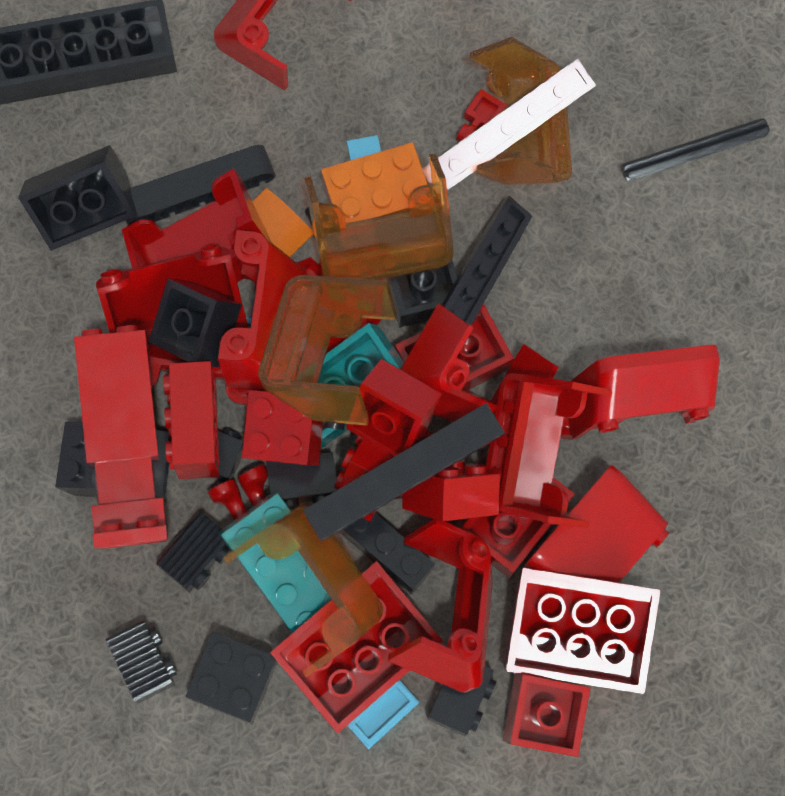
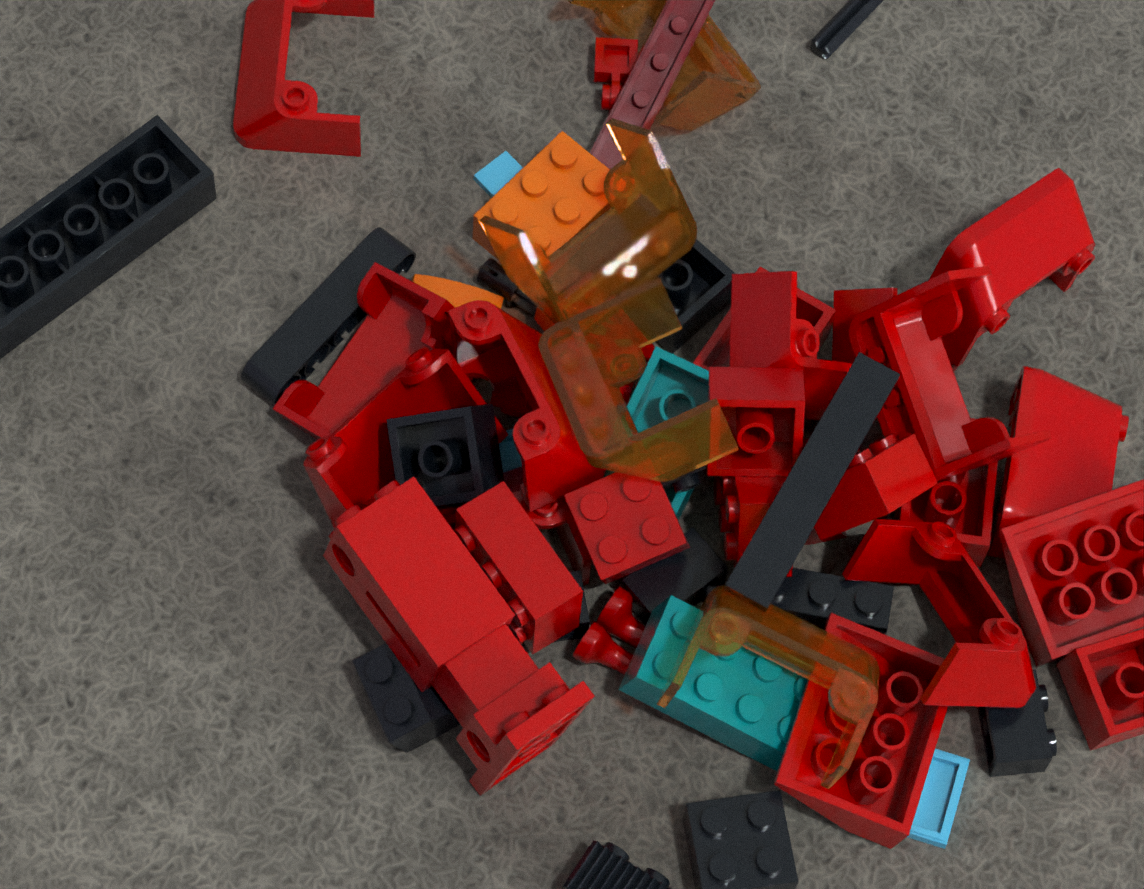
camera: 30 degrees left, 10 degrees down
(78, 198) = (198, 397): black slope -> none
(194, 553) = (600, 736): black brick -> none
(487, 260) = (731, 214): black plate -> none

